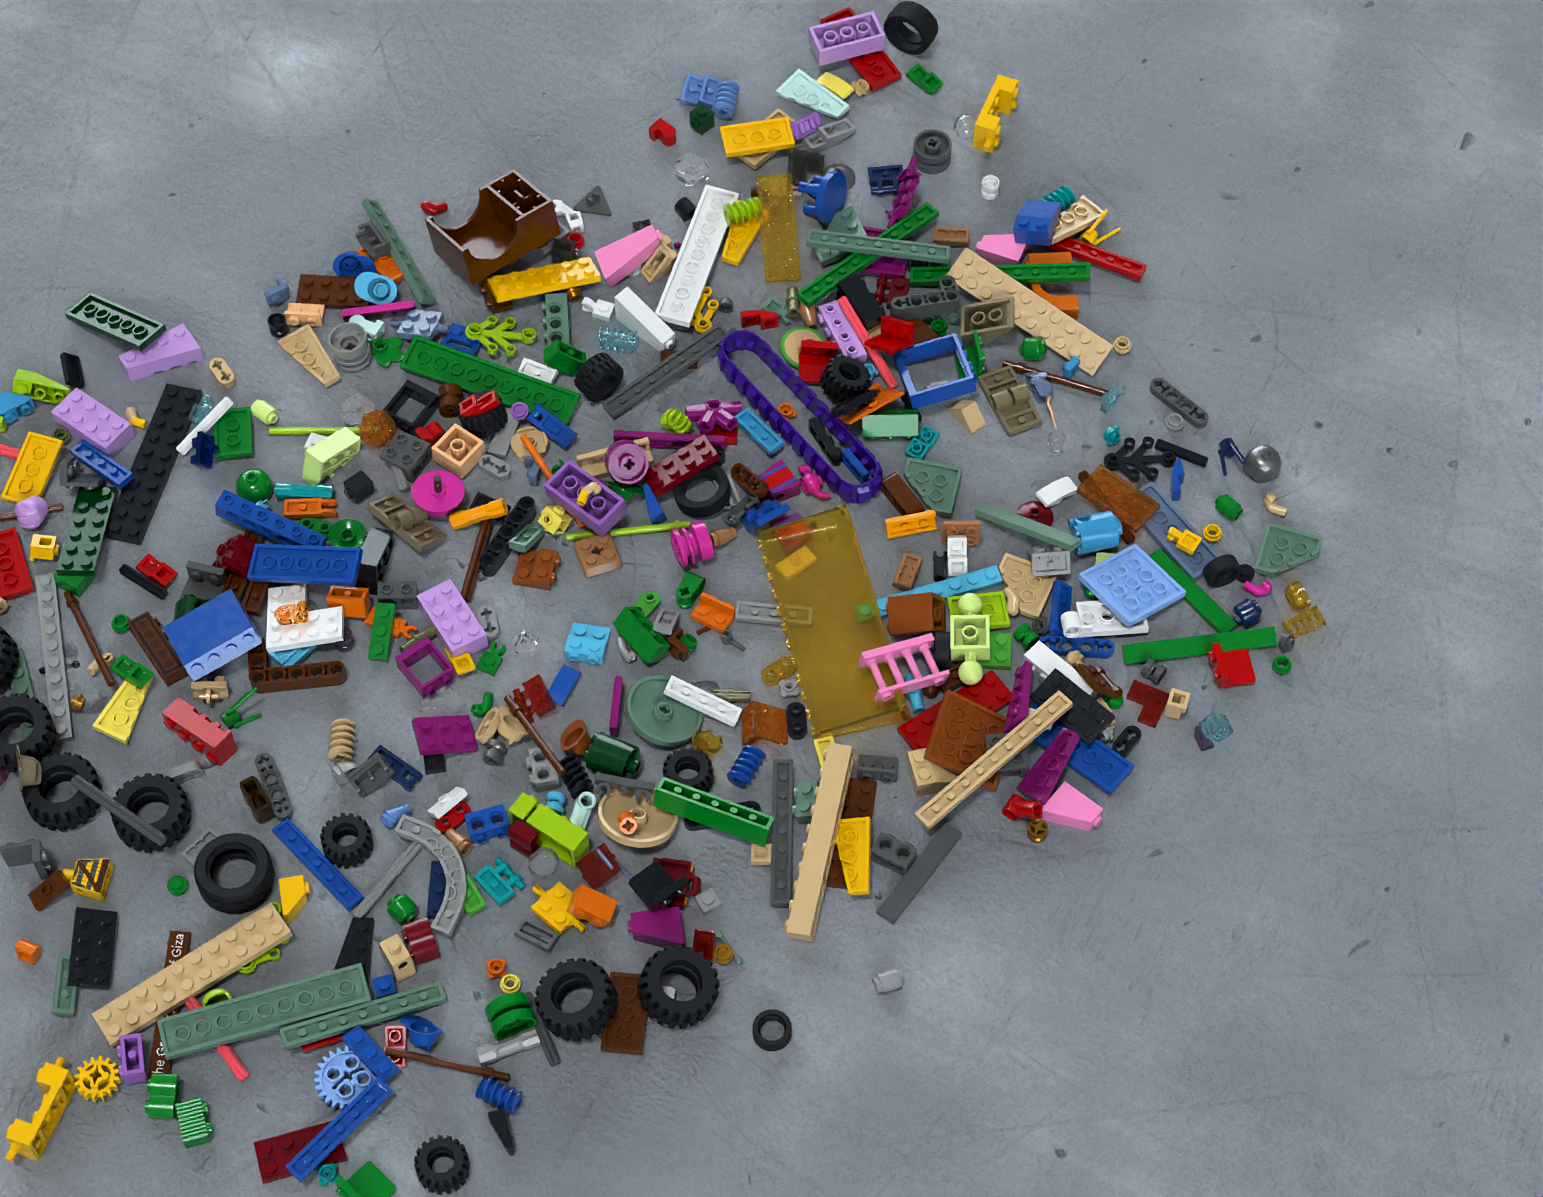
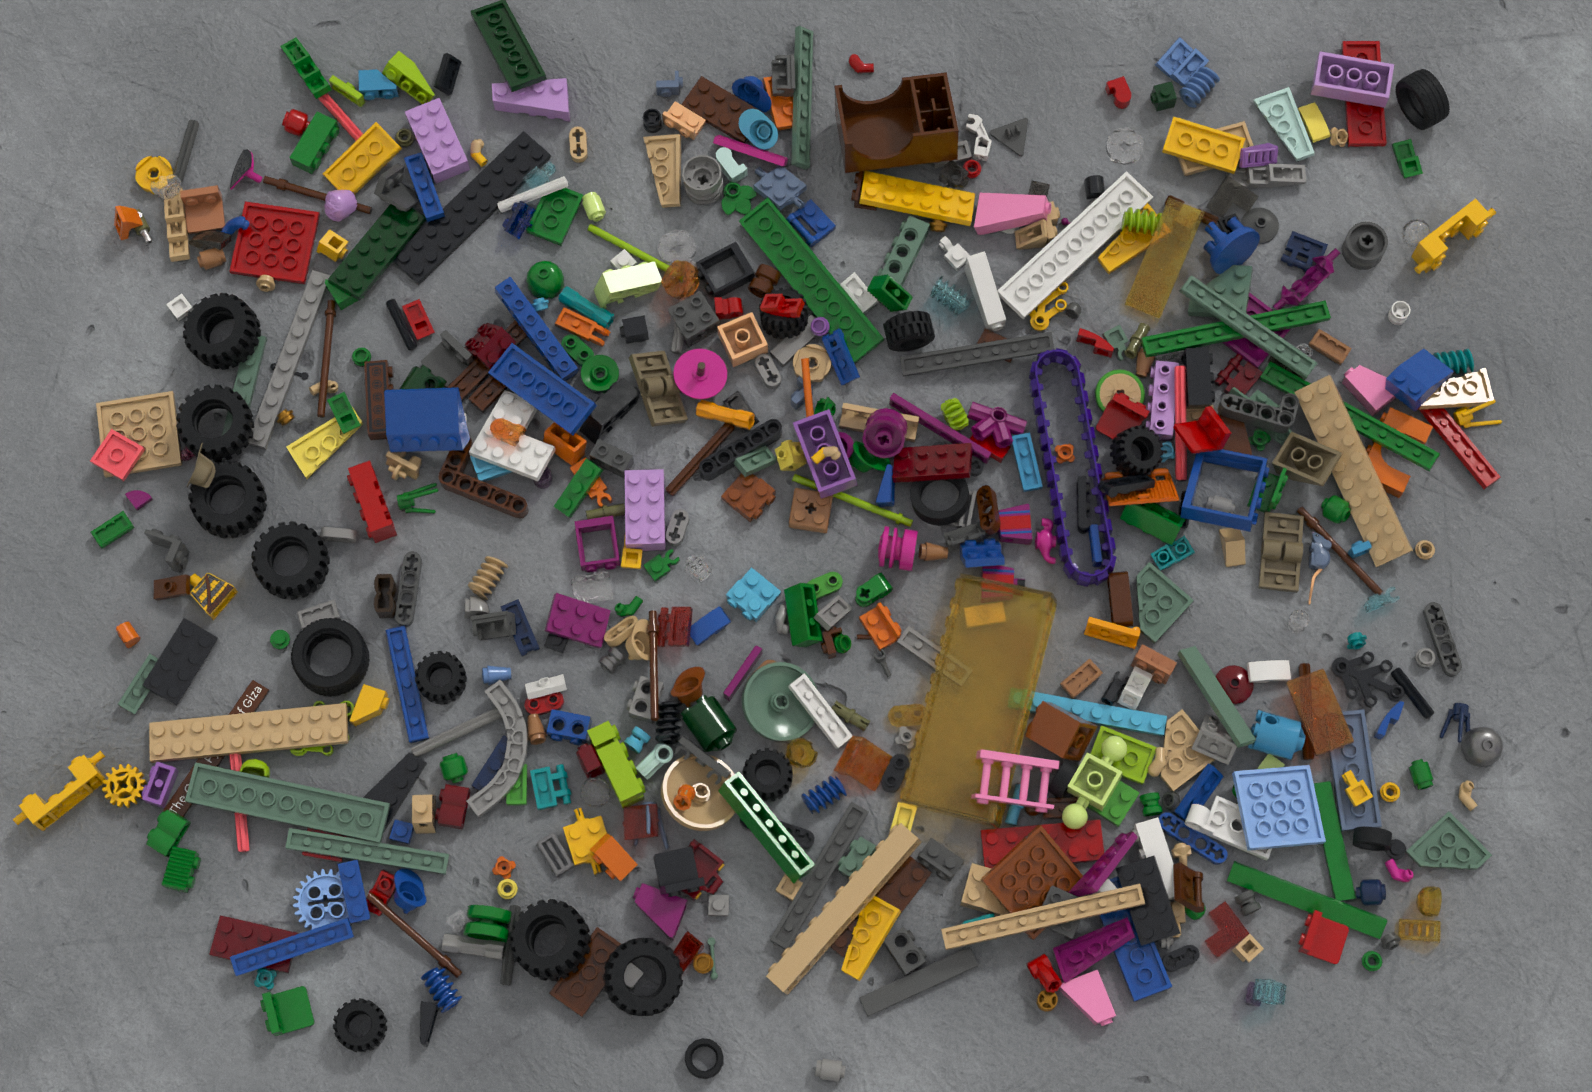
camera: 30 degrees right, 15 degrees up
(118, 810) = (259, 548): dark grey axle -> none
(477, 332) = (844, 234): lime plant -> none

